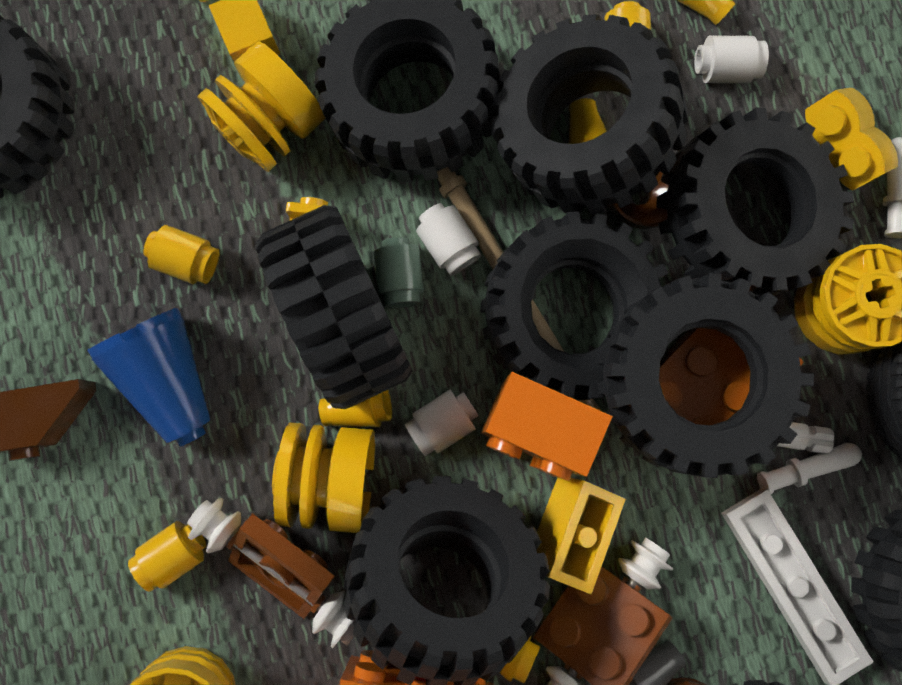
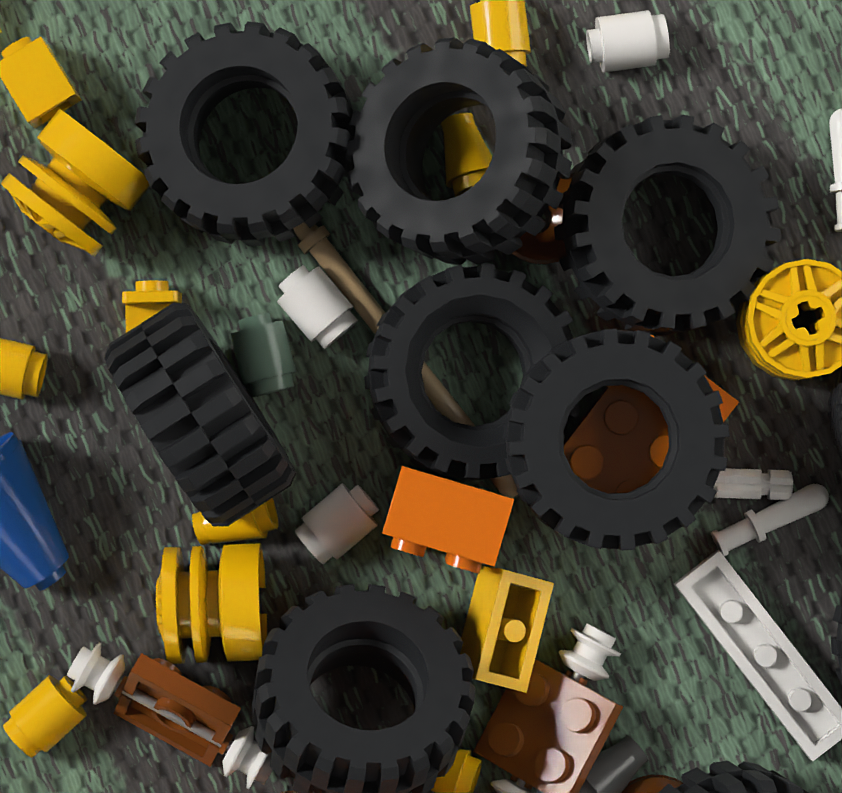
camera: 10 degrees left, 5 degrees up
(849, 125) = (777, 124): yellow brick -> none

